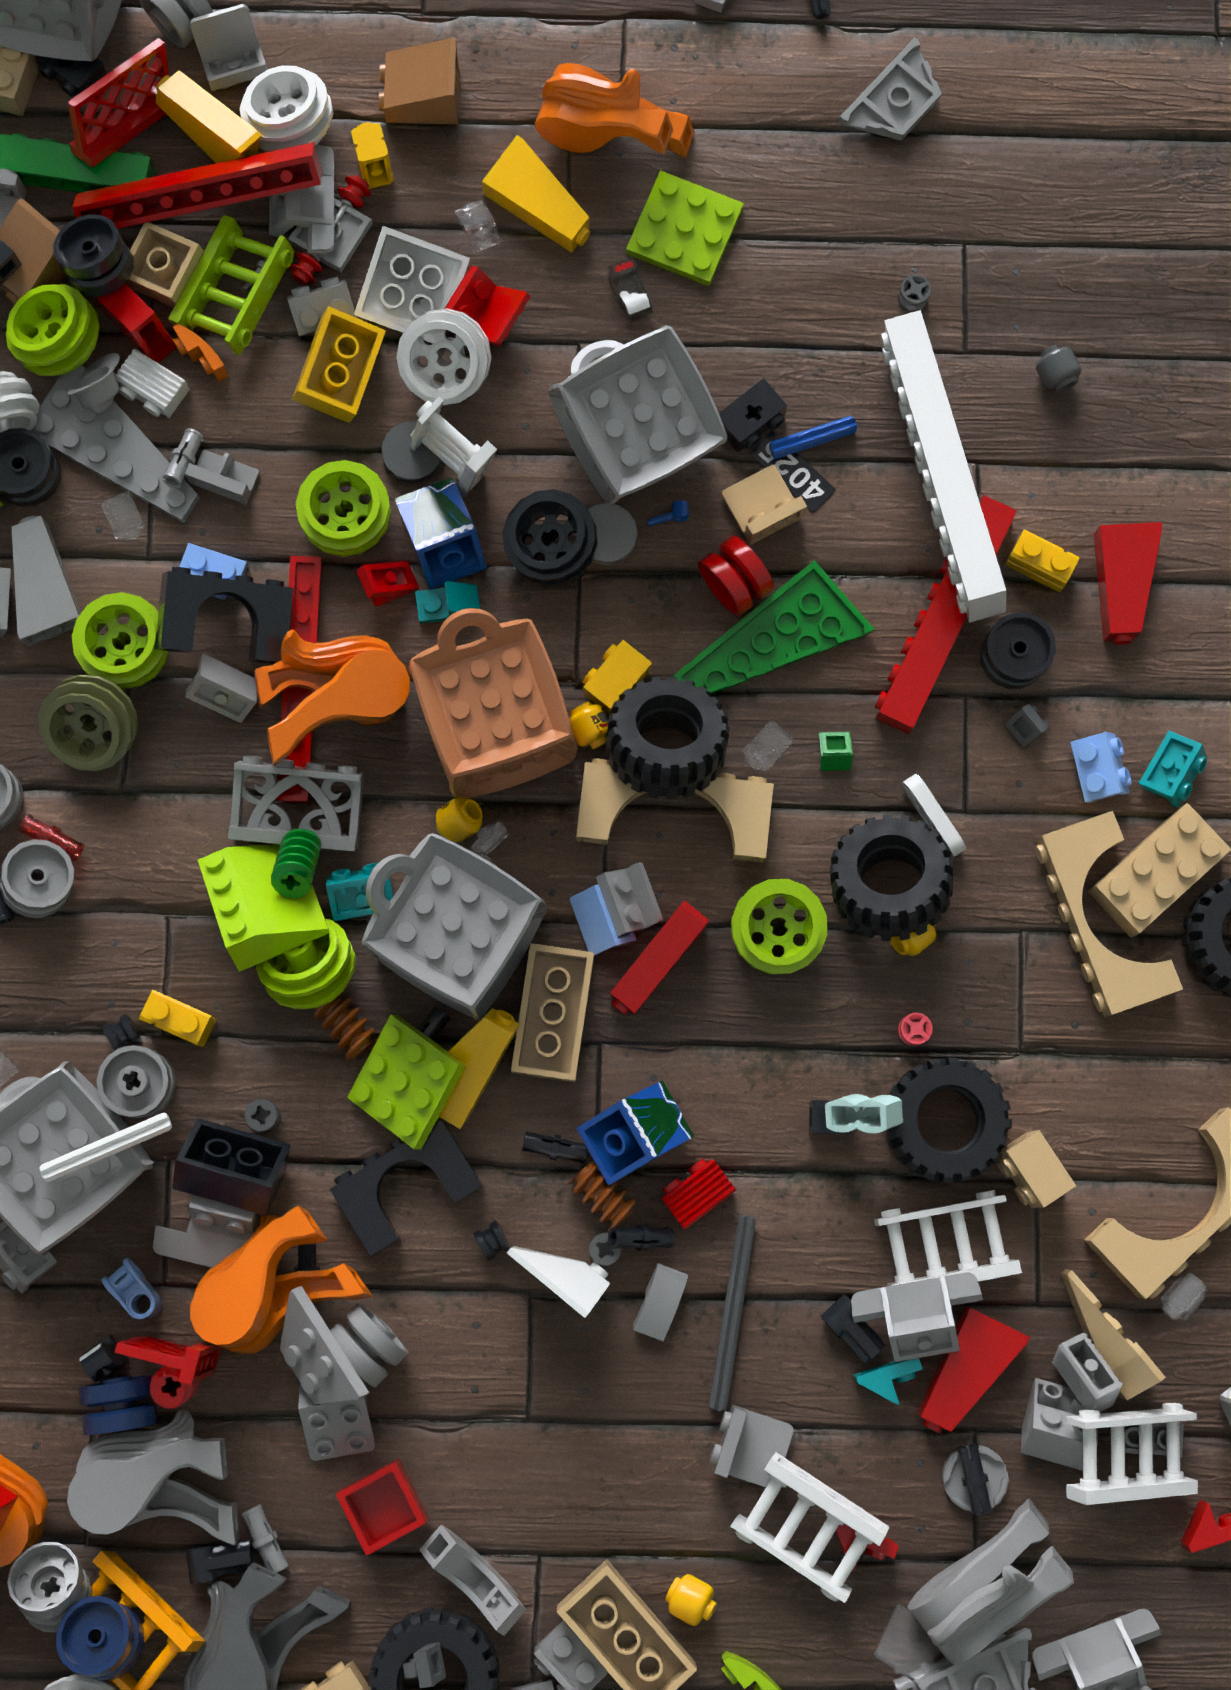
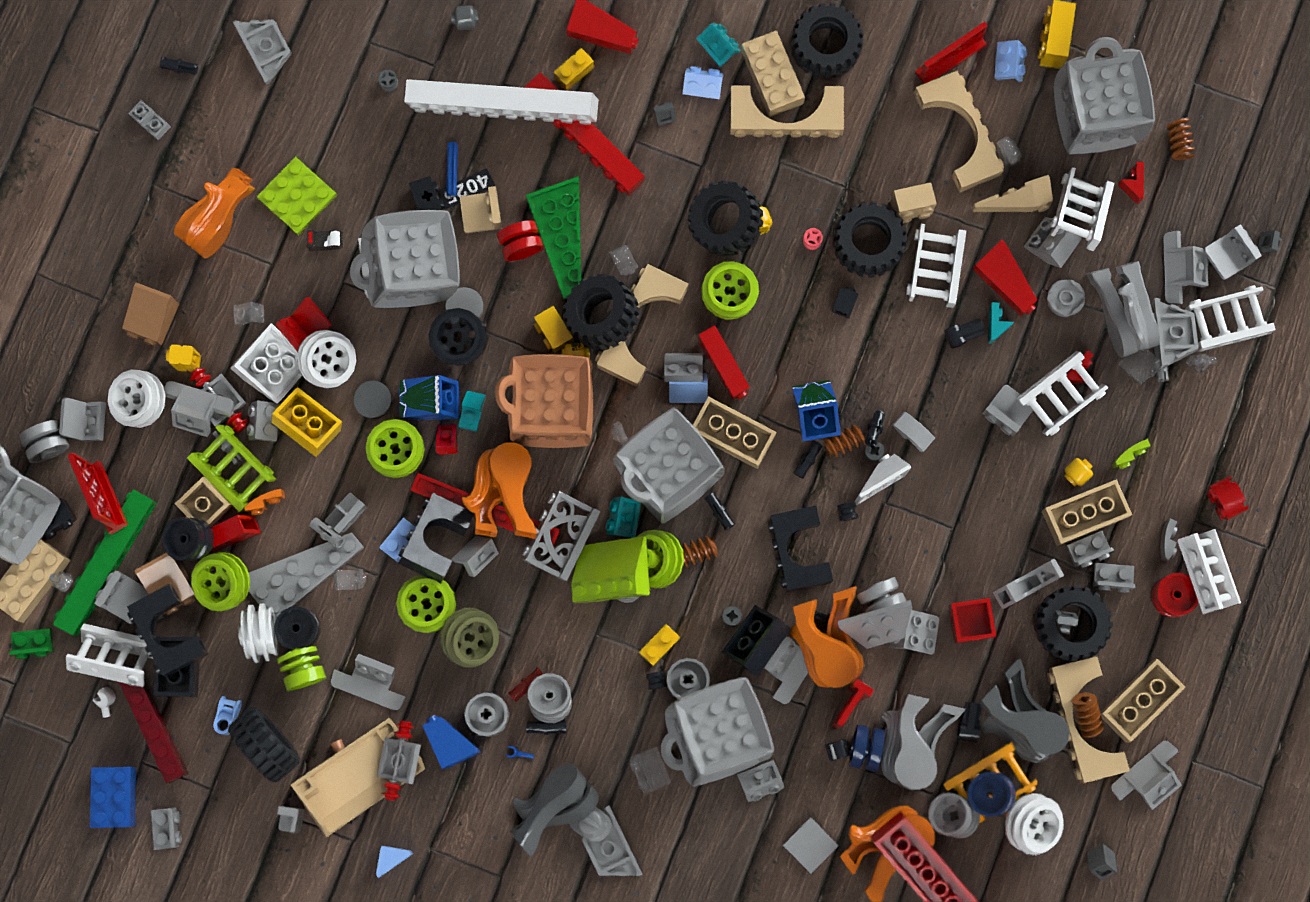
camera: 65 degrees left, 0 degrees up
(42, 588) = (376, 640): light grey slope -> none
(97, 384) = (262, 566): light grey piece -> none
(105, 1147) = (728, 692): white axle -> none
(128, 1285) = (803, 722): light blue piece -> none
(151, 384) = (273, 537): white brick -> none
(167, 1396) = (871, 707): red piece -> none
(203, 187) = (168, 462): red brick -> none
(206, 119) = (126, 447): slope -> none
(264, 1539) = (966, 694): light grey pin -> none
(296, 863) = (597, 544): green piece -> none
(406, 1081) = (743, 526): lime plate -> none
(451, 446) = (395, 367): white fence -> none
(459, 819) = (602, 447): yellow head -> none
(481, 1053) = (748, 492): yellow slope -> none
(535, 195) = (245, 273): yellow slope -> none
(679, 513) = (467, 260): blue hand -> none
(697, 1193) = (861, 389): red brick -> none
(732, 1313) = (932, 395): dark grey axle -> none
(835, 751) = (639, 224): green slope -> none
(864, 1113) = (849, 283): light aqua brick -> none
(918, 1313) = (969, 292): light grey plate -> none
(933, 813) = (694, 184): white beam -> none
(975, 1480) = (1067, 297): black pin -> none
(1014, 633) = (621, 113): black wheel -> none
(1087, 1373) = (1031, 216): light grey brick -> none

